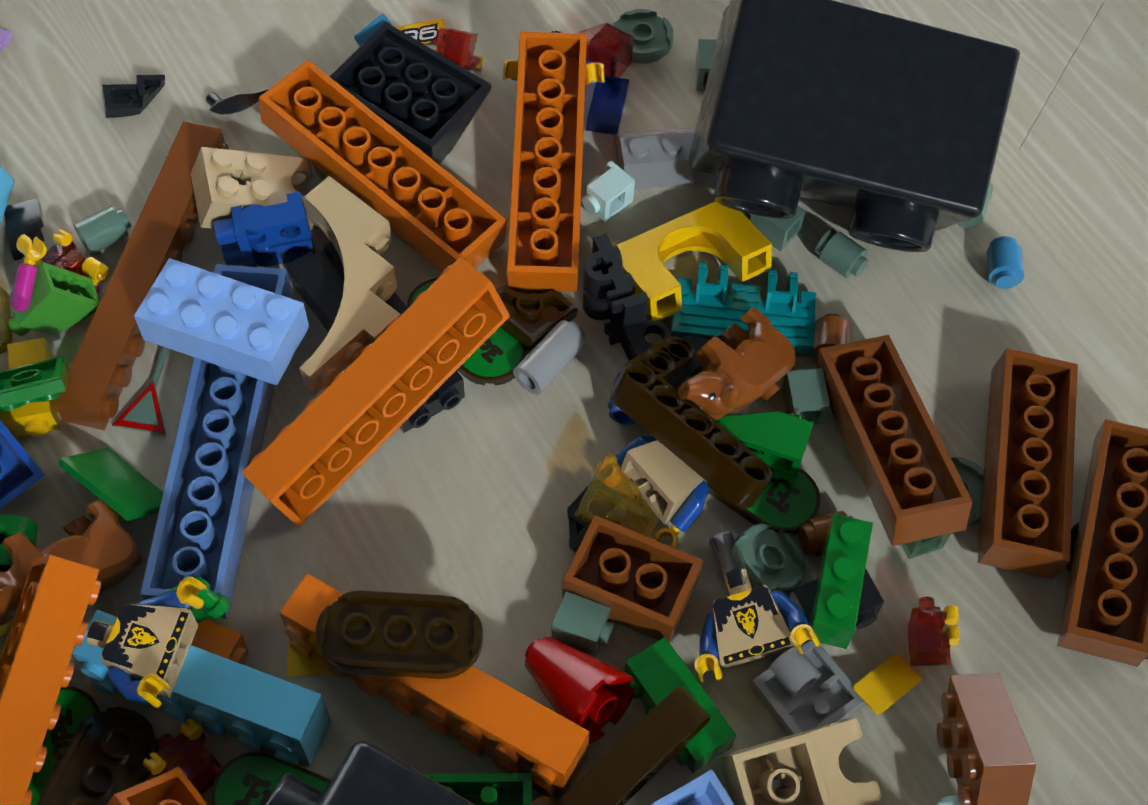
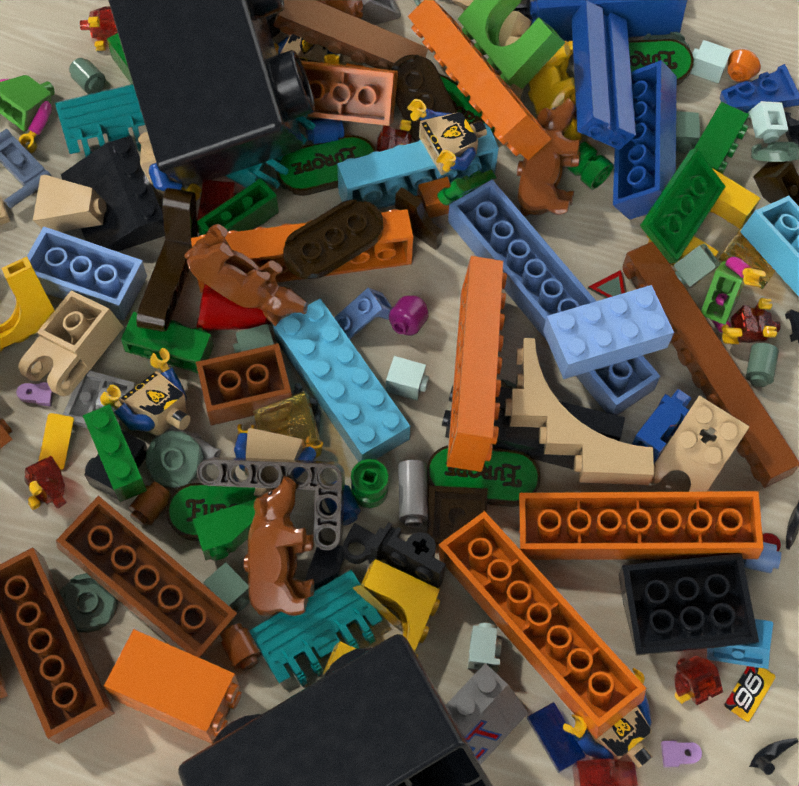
camera: 140 degrees right, 5 degrees up
(51, 334) = (696, 265): none -> sand green brick
(114, 482) = (576, 231): green piece -> none
(266, 630) = (421, 223): none -> dark brown tile
(384, 531) = (408, 315): none -> magenta head
(431, 569) = (362, 311): none -> medium blue bracket
(452, 467) = (406, 378): none -> light aqua brick
(511, 29) = (674, 753): none -> lavender piece
(523, 515) = (342, 382): none -> medium azure brick
(549, 660) = (240, 278): none -> dark orange animal
(587, 387) = (369, 483): none -> green wheel
(672, 270) = (376, 604): none -> yellow sticker
(867, 764) = (40, 393): none -> lavender piece
(931, 331) = (173, 686): none -> orange brick

